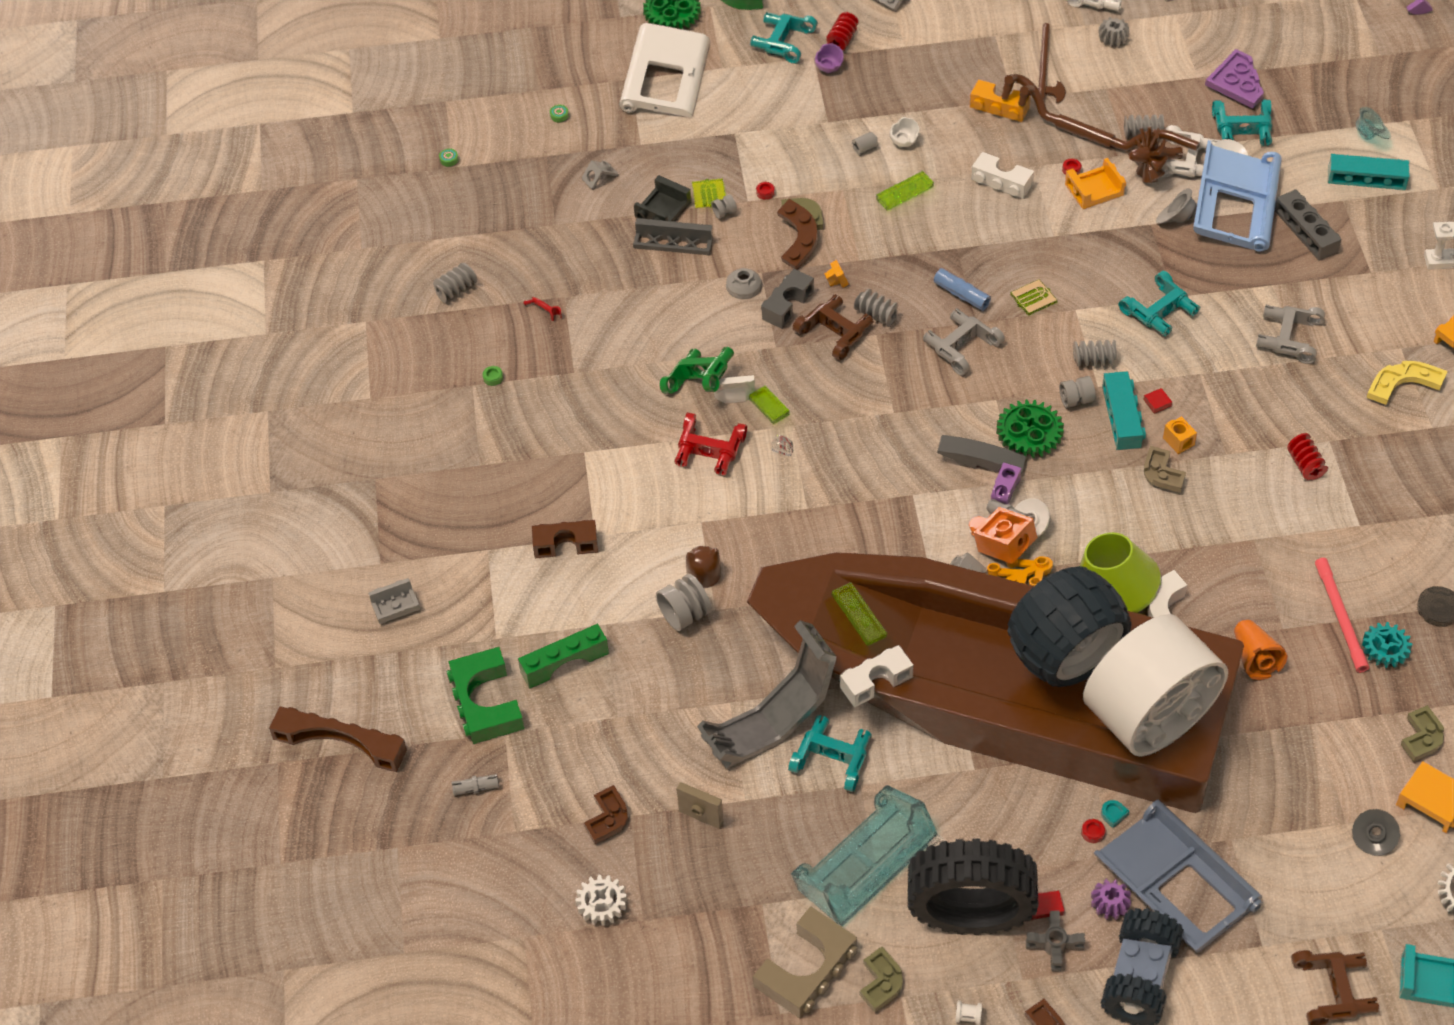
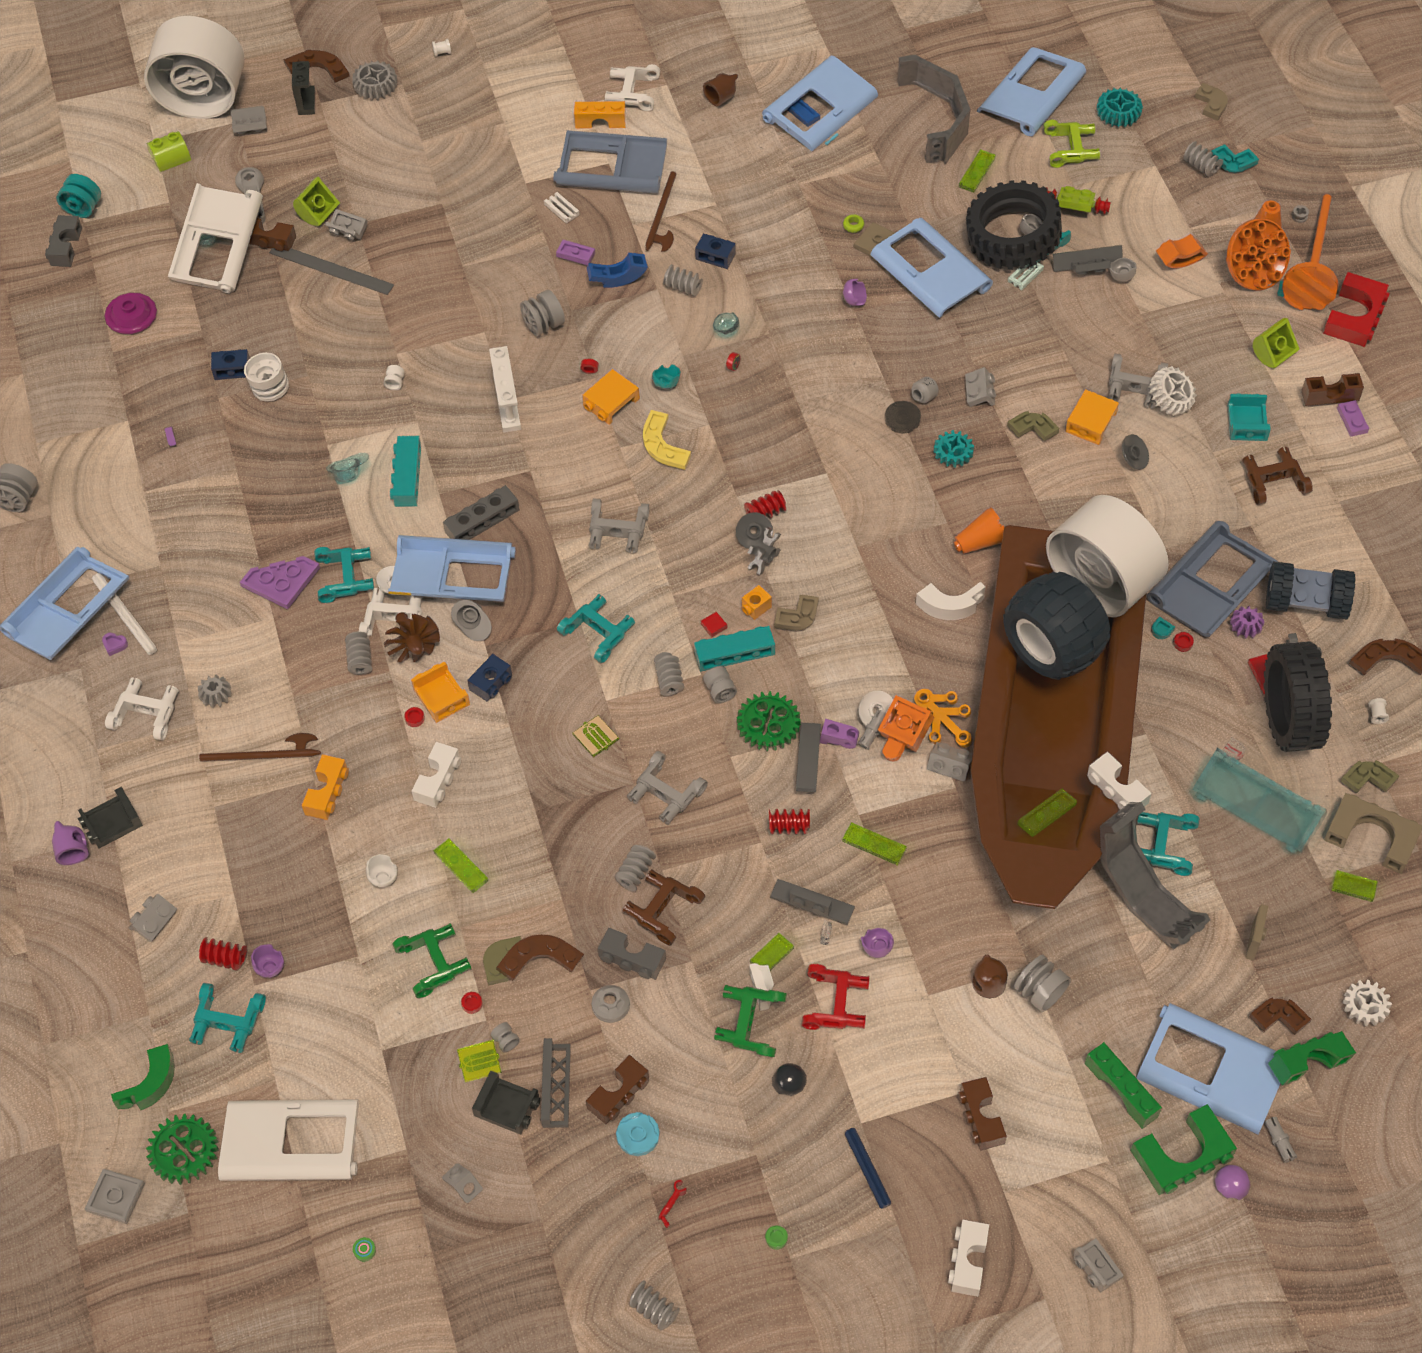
camera: 100 degrees left, 5 degrees up
(296, 727) = (1268, 1326): reddish brown arch -> none
(415, 500) = (971, 1238): none -> white arch
(443, 733) = (1232, 1182): none -> medium lavender hair
(537, 447) = (867, 1168): none -> dark blue axle
(539, 792) = (1292, 1063): none -> green arch
(550, 765) = (1242, 1083): none -> light blue piece
(613, 291) = (637, 1134): none -> medium azure tile
(637, 400) = (789, 1079): none -> black hair
(664, 287) = (607, 1104): none -> reddish brown arch
(745, 930) = (1354, 886): none -> clear neon green tile
(760, 481) = (877, 942): none -> medium lavender hair
(799, 170) = (431, 939): none -> green connector
(815, 438) = (812, 901): none -> dark grey bracket
(835, 275) = (593, 910): light orange tile -> none
(864, 143) = (395, 910): light grey piece -> none
(874, 500) = (874, 844): none -> clear neon green tile
(907, 428) = (789, 821): none -> red piece
(962, 289) = (598, 795): medium blue axle -> none
(1079, 128) = (364, 705): reddish brown piece -> none
(1107, 219) = (491, 668): none -> dark blue brick
(1124, 567) = (940, 657): lime cone -> none
(1242, 442) = (764, 551): none -> dark grey pin
(1274, 442) = (745, 524): none -> dark grey dish
(1356, 653) = (889, 492): coral piece -> none

